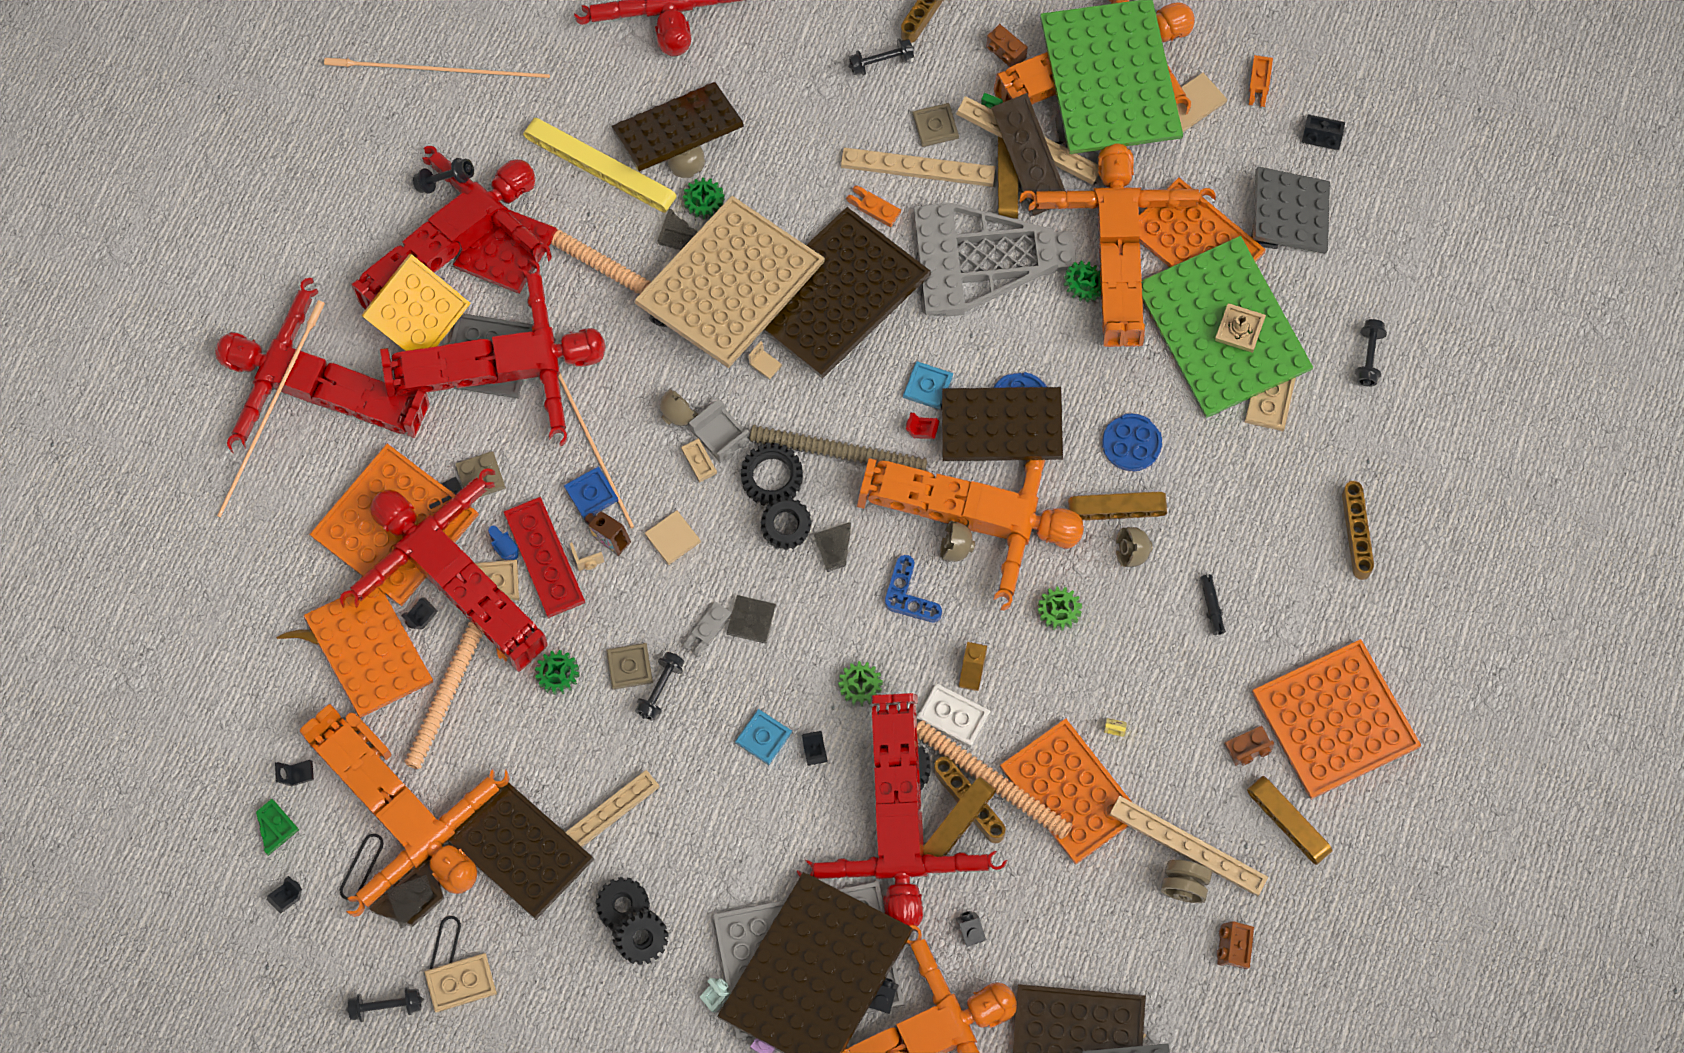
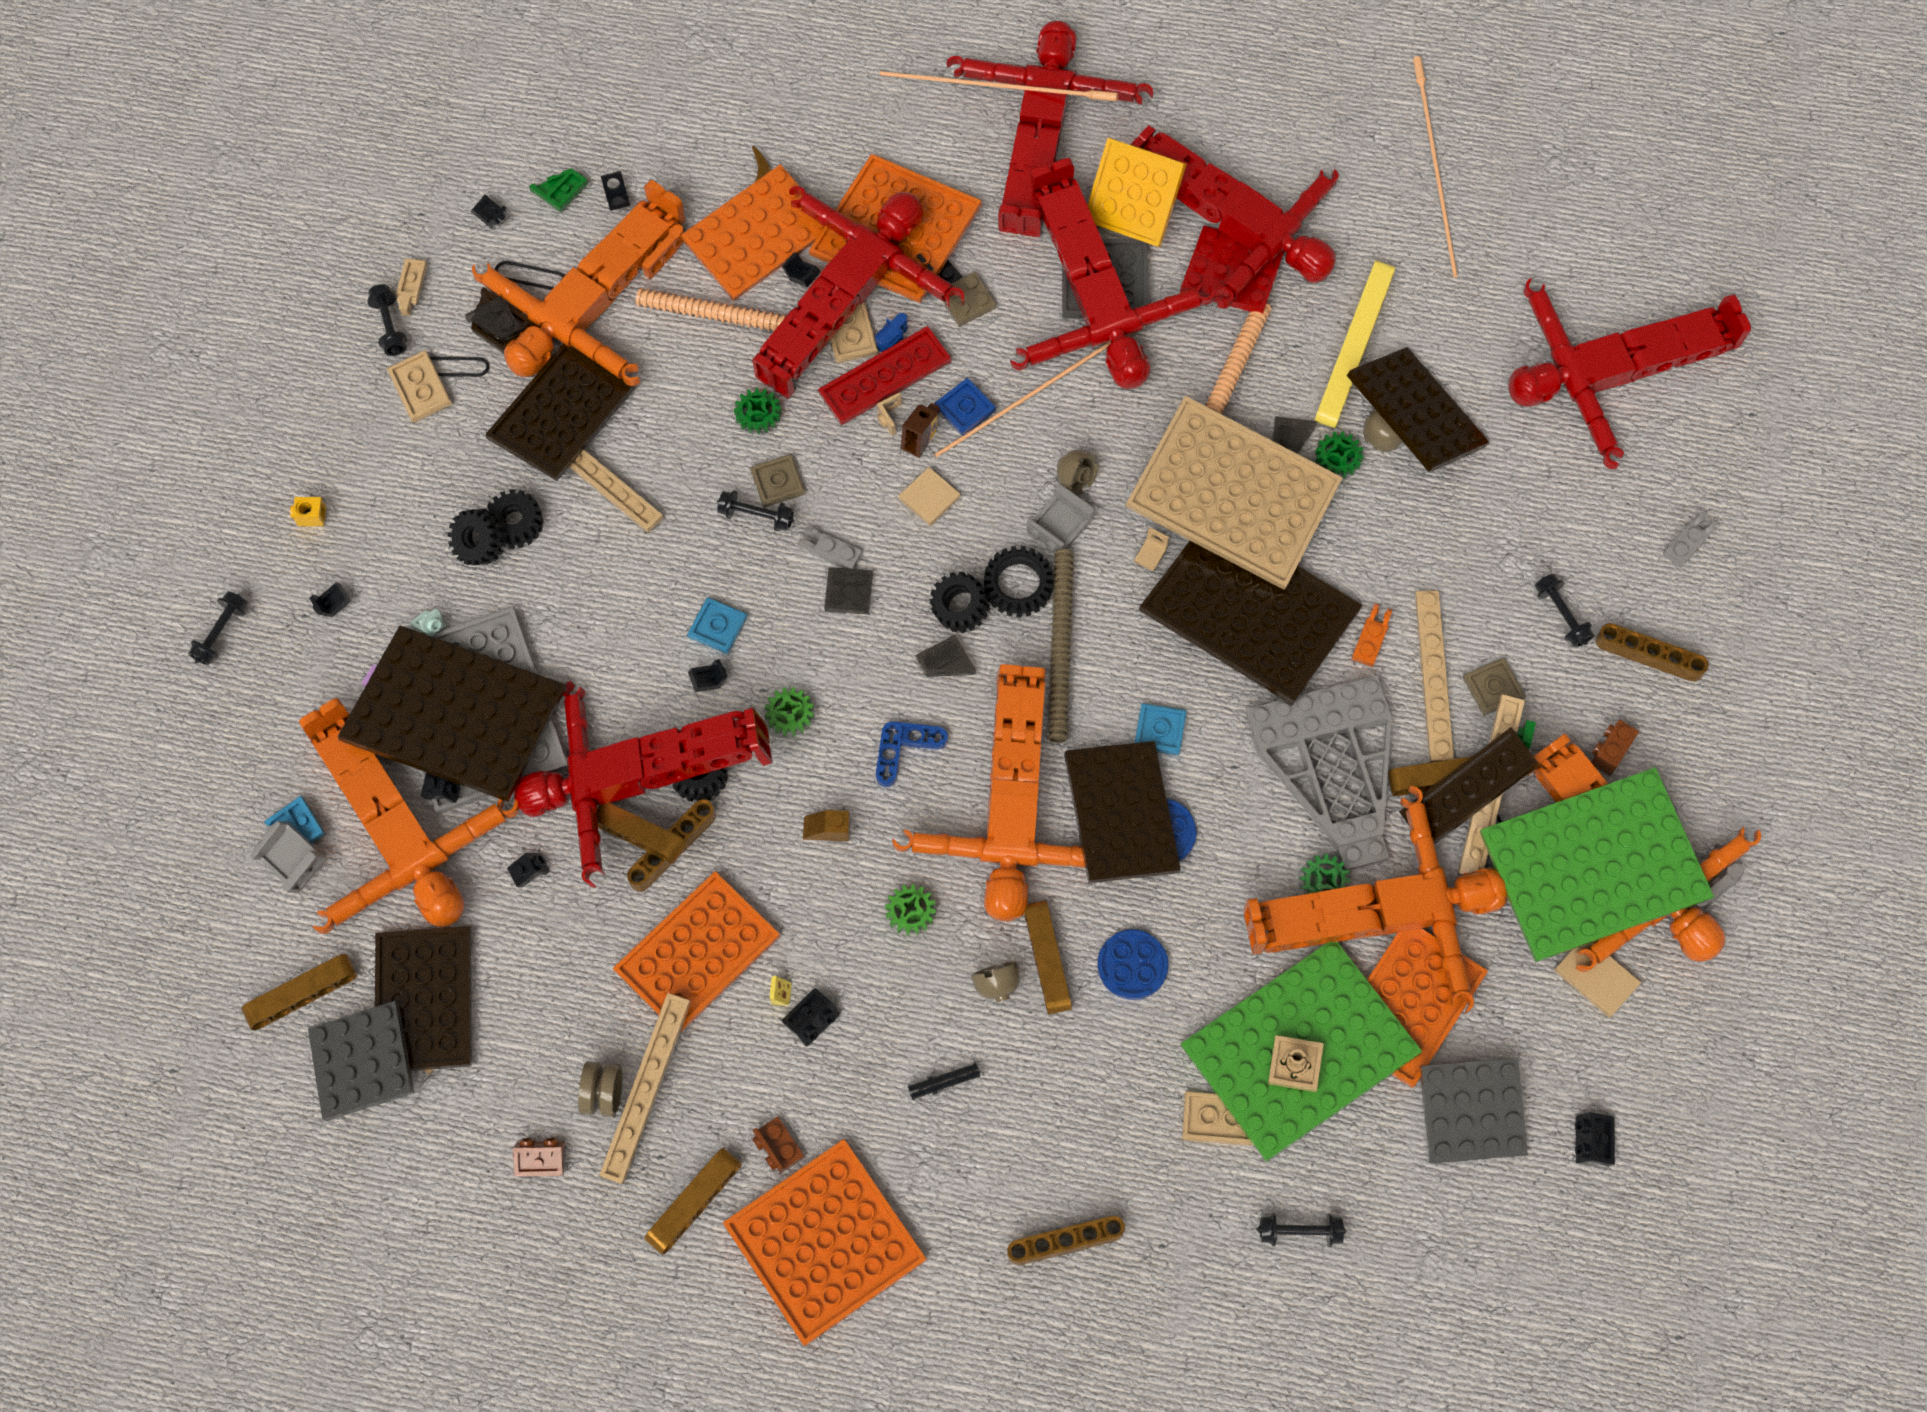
camera: 80 degrees right, 0 degrees up
(347, 980) = (410, 284): none -> tan hinge
(460, 169) = (1305, 198): black piece -> none
(699, 460) = (1022, 505): tan plate -> none
(922, 427) = (1105, 727): red bracket -> none
(953, 715) = (769, 816): white tile -> none
(956, 543) = (968, 785): dark tan cylinder -> none
(1006, 789) = (695, 863): light nougat piece -> none
(1141, 703) = (811, 1017): none -> black bracket
(1260, 78) = (1649, 1053): orange hinge -> none

